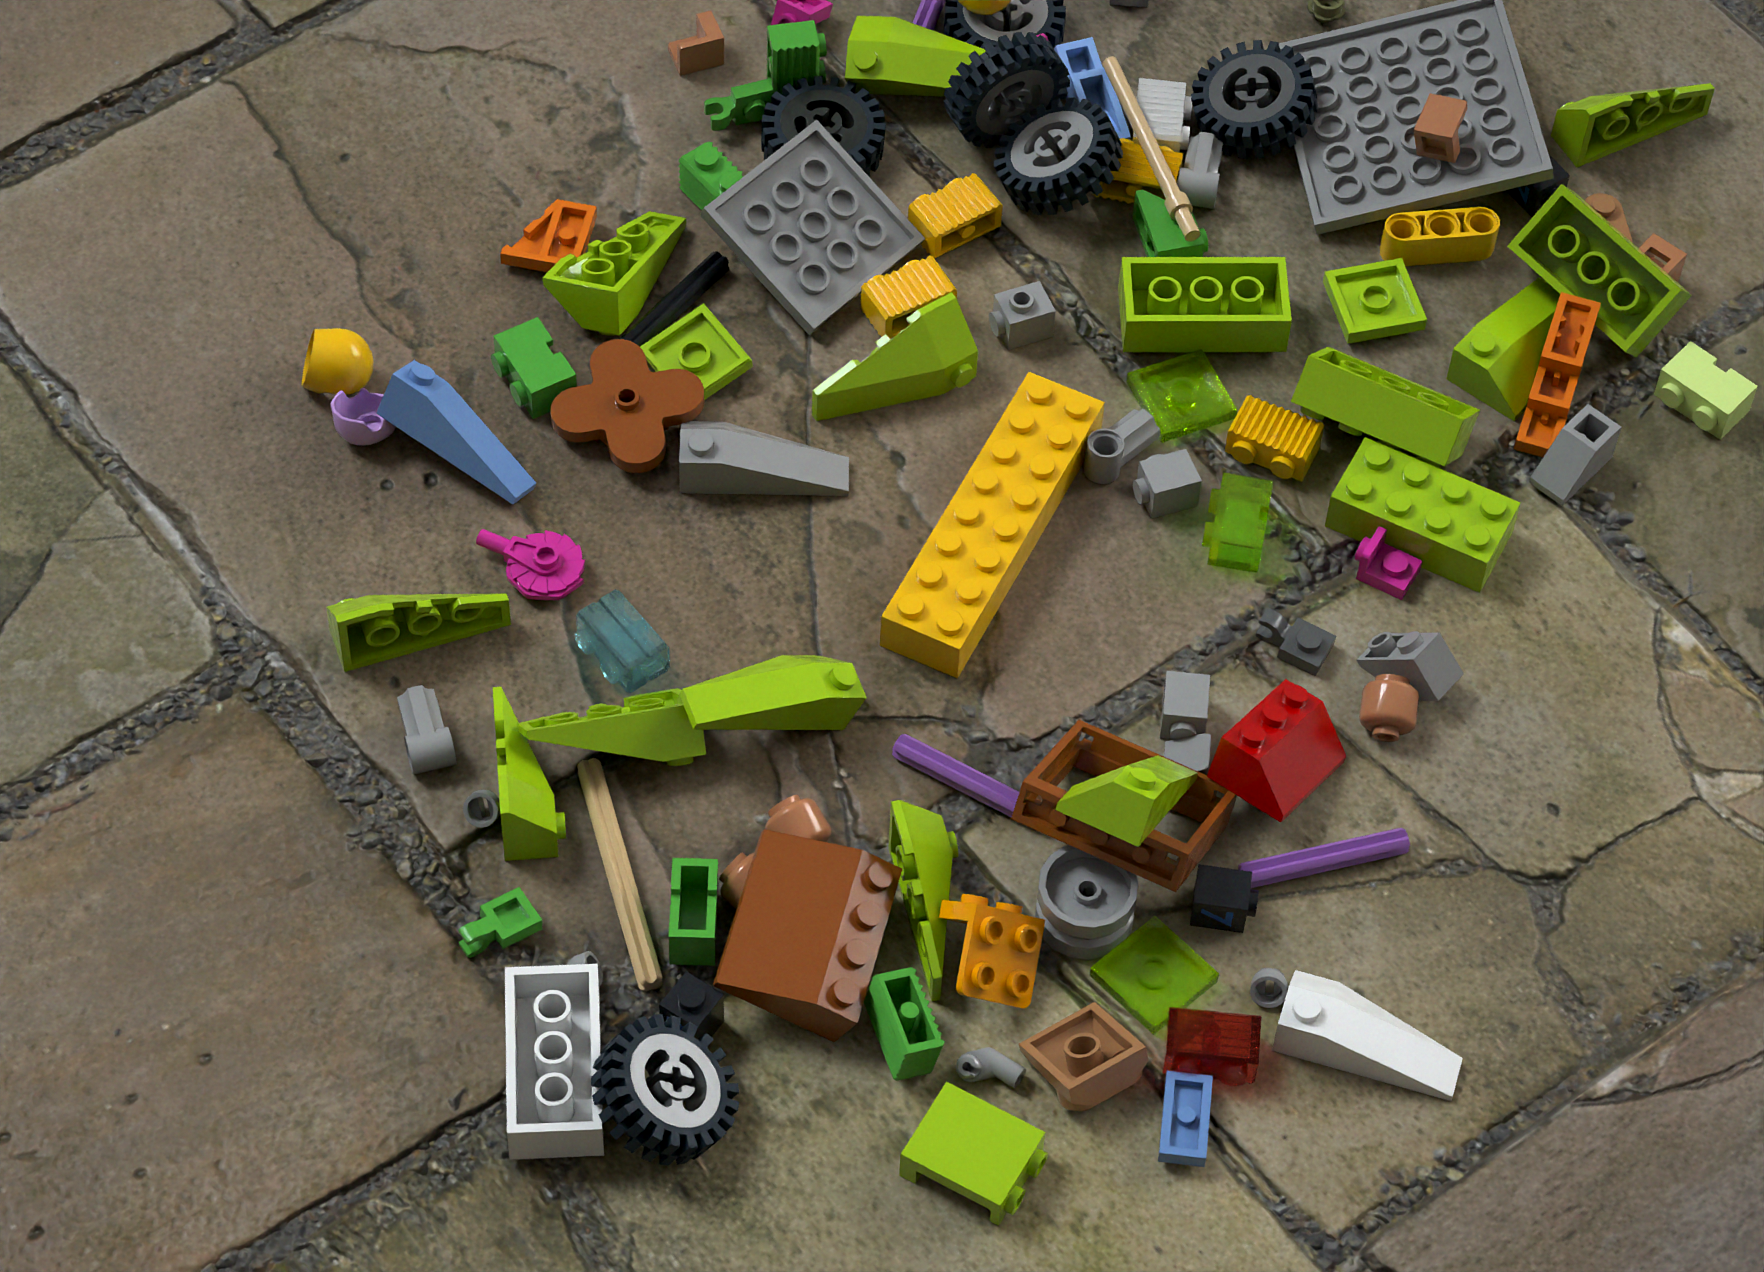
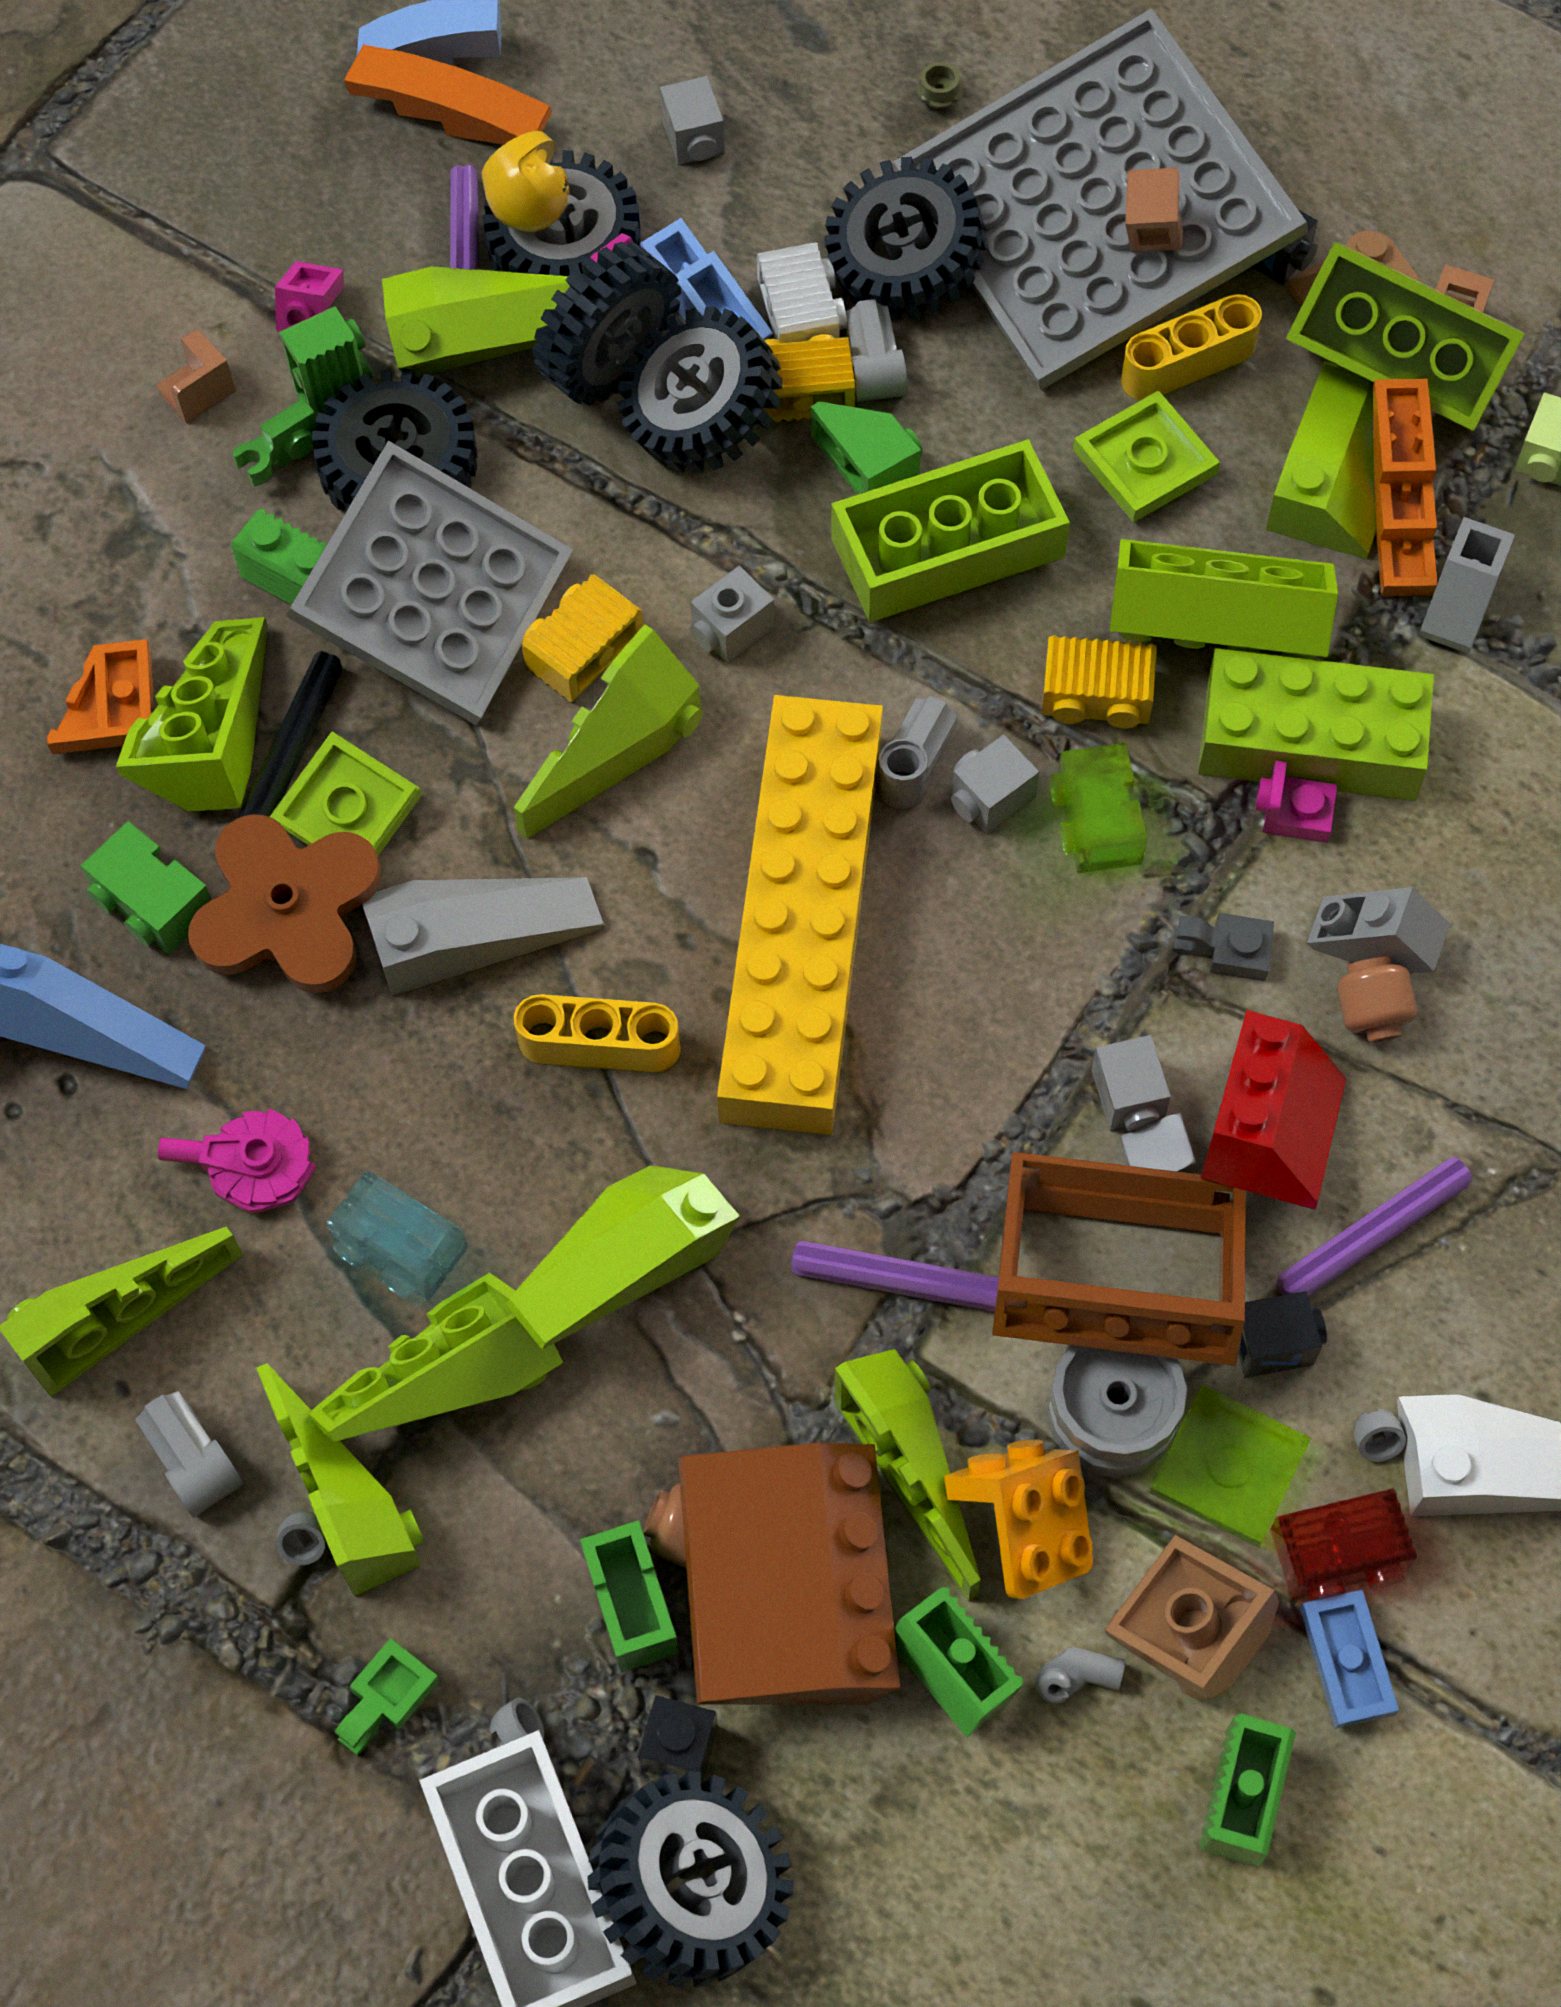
camera: 15 degrees left, 10 degrees up
(619, 875) = (512, 1569): tan axle -> none
(799, 818) = (716, 1421): nougat head -> none
(834, 555) = (577, 1015): none -> yellow beam
(955, 214) = (598, 505): yellow brick -> none
(975, 1151) = (1110, 1810): lime panel -> none
(1075, 1168) = (1247, 1790): none -> bright green brick
(1129, 799) = (1136, 1260): lime wedge -> none
(1176, 201) = (869, 407): tan bar -> none
(1182, 395) = (962, 656): clear neon green tile -> none
(1619, 120) = (1339, 129): lime wedge -> none

